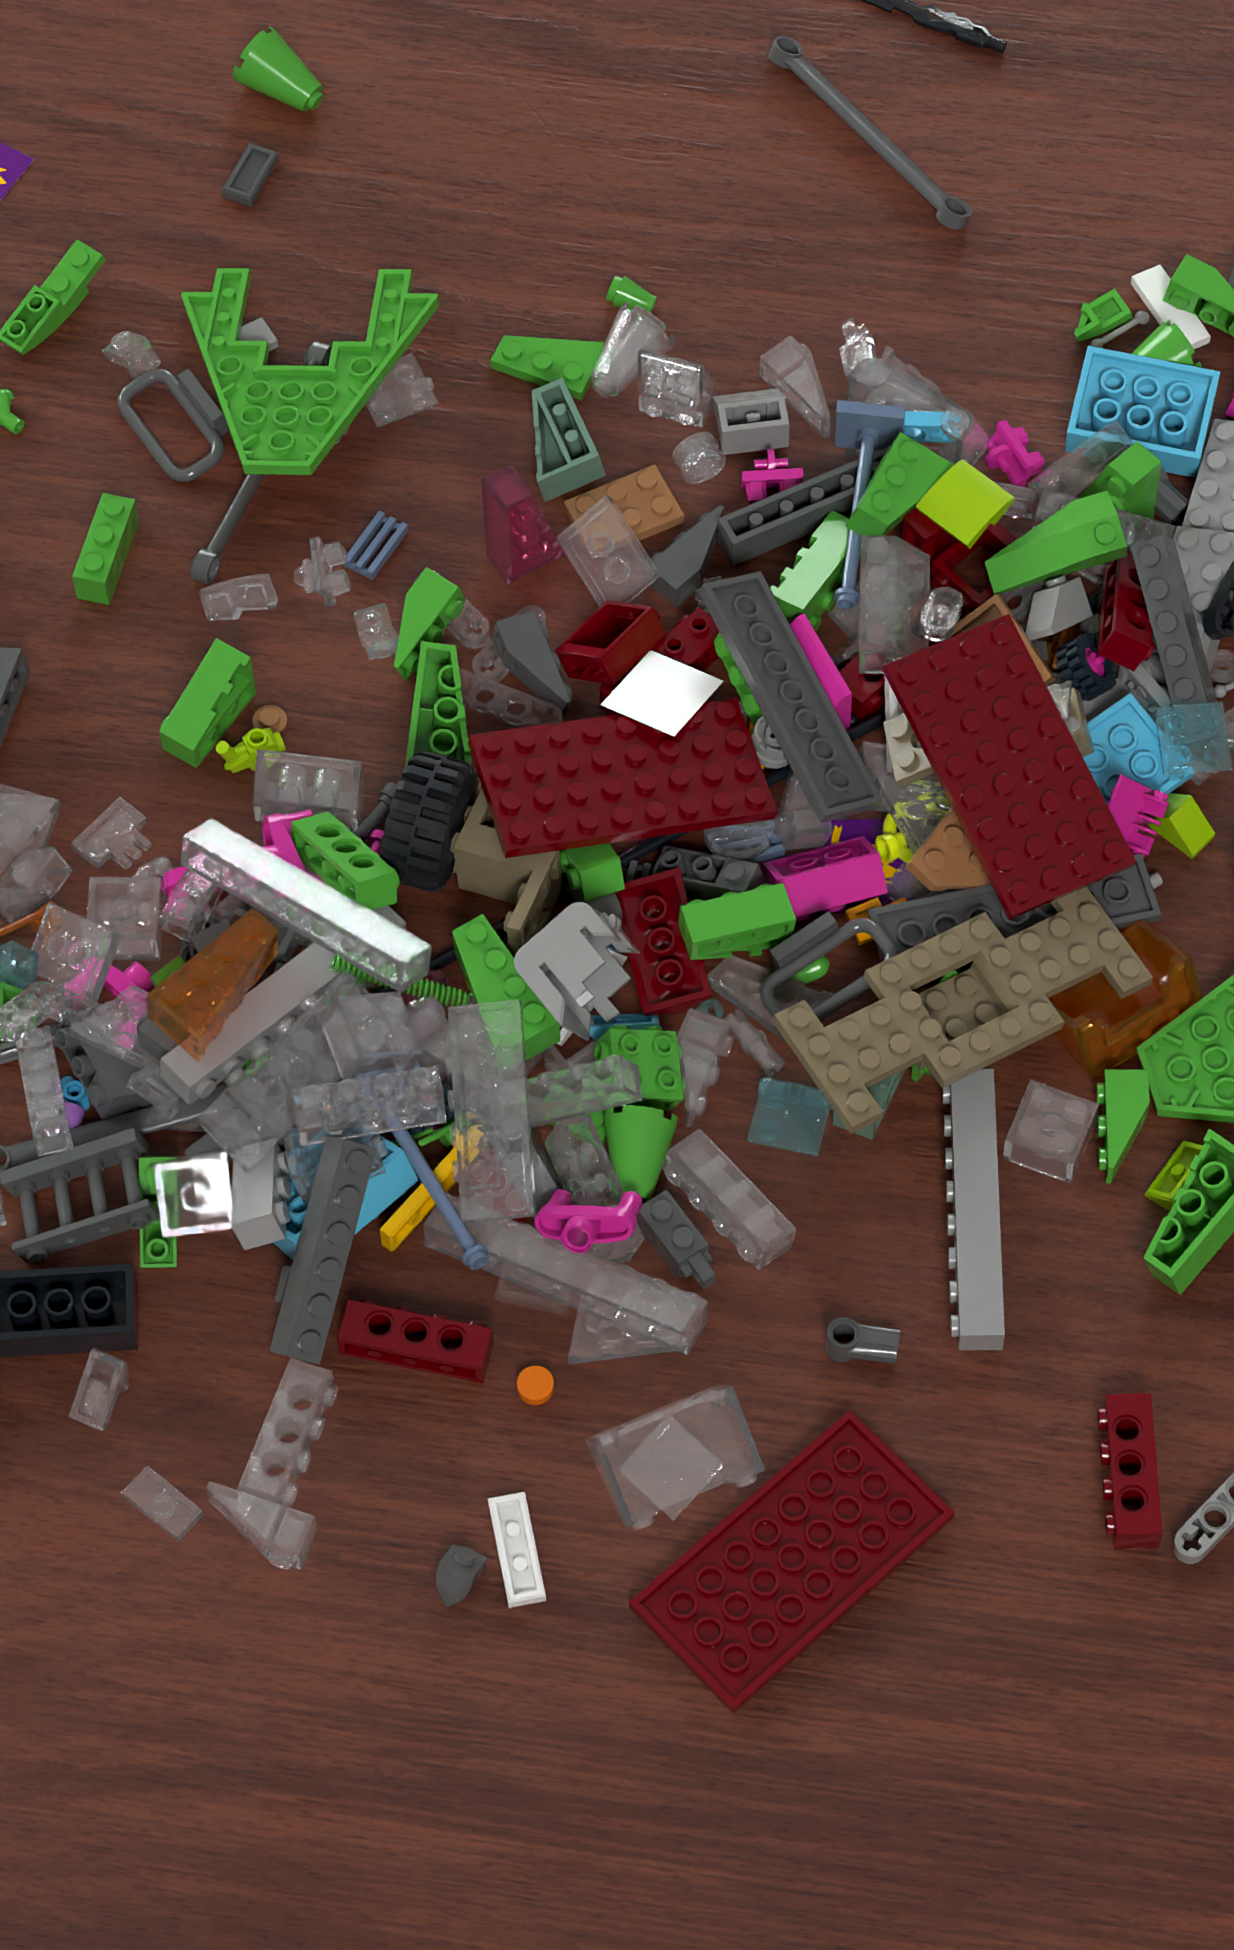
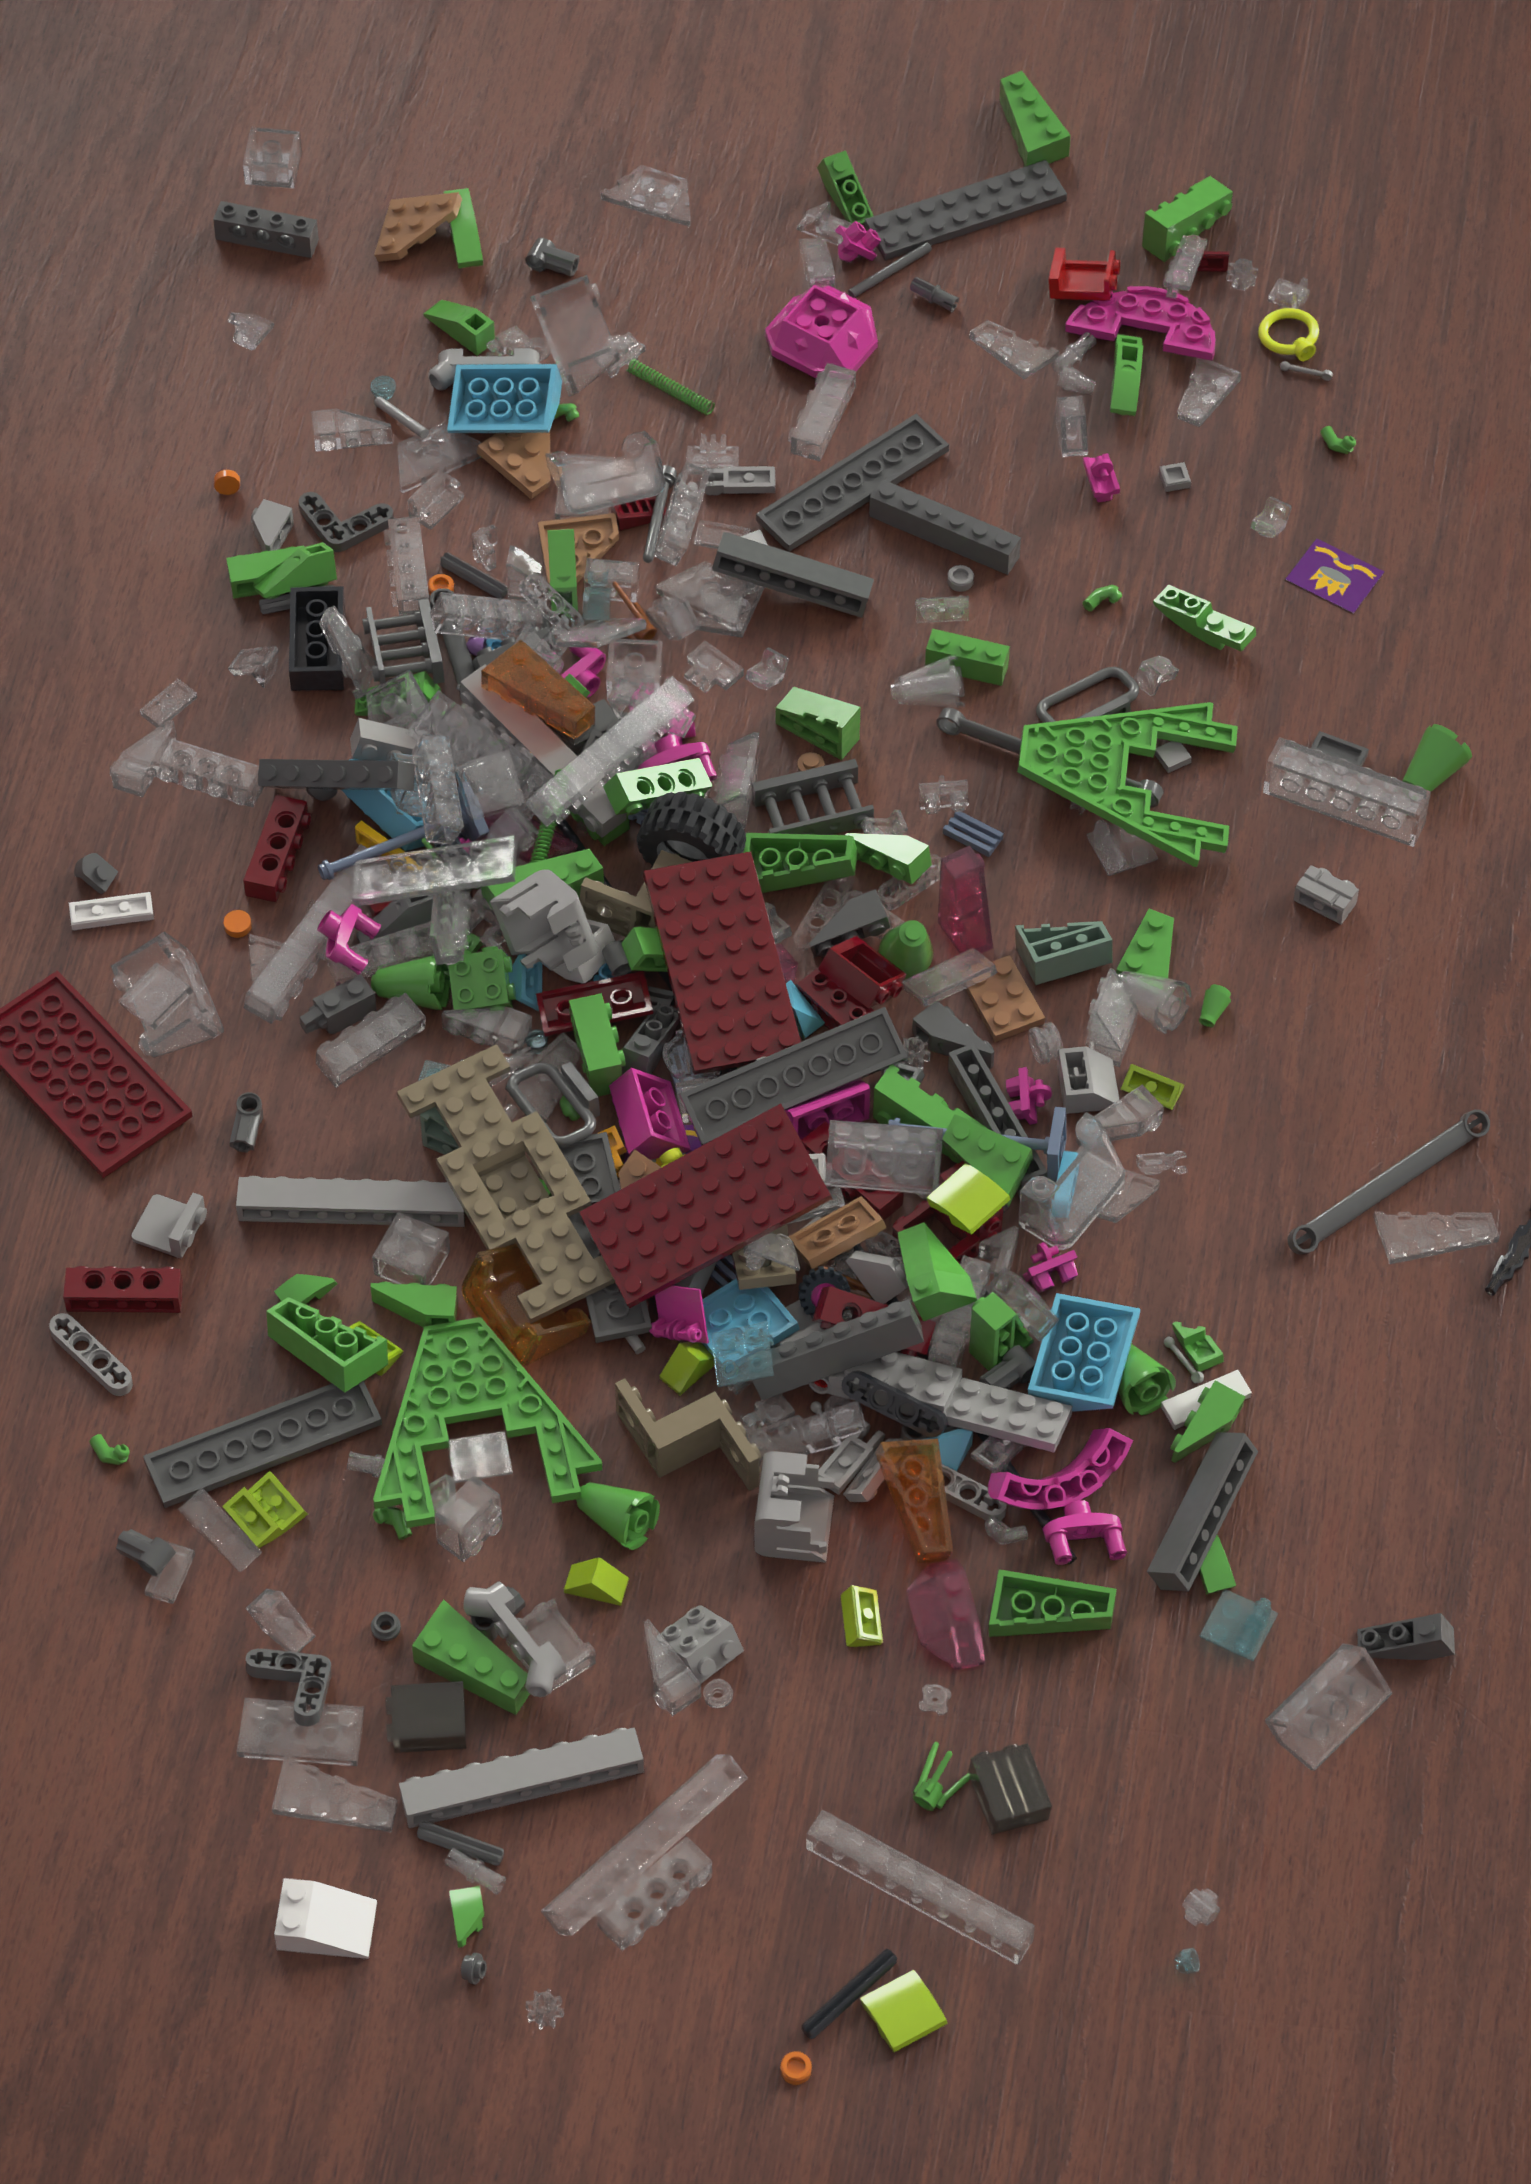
camera: 90 degrees right, 5 degrees down
(19, 569) = (942, 609): none -> clear hinge
(103, 1255) = (354, 657): none -> clear wing
(121, 771) = (768, 671): none -> clear bracket
(154, 580) = (931, 685): none -> clear cone
(232, 597) = (924, 743): clear slope -> none
(244, 754) = (782, 752): lime piece -> none
(304, 708) = (812, 781): none -> dark grey fence
(326, 153) = (1346, 791): none -> clear brick
(467, 183) = (1326, 894): none -> light grey brick
(568, 594) = (908, 947): none -> bright green cone
(662, 693) = (801, 993): white sticker -> none
(742, 360) = (1162, 1088): none -> lime slope
(936, 100) = (1421, 1236): none -> clear wing
(941, 614) = (872, 1187): clear plate -> none
(1026, 1421) = (170, 1224): none -> light grey bracket
(1111, 1258) = (305, 1287): none -> bright green slope

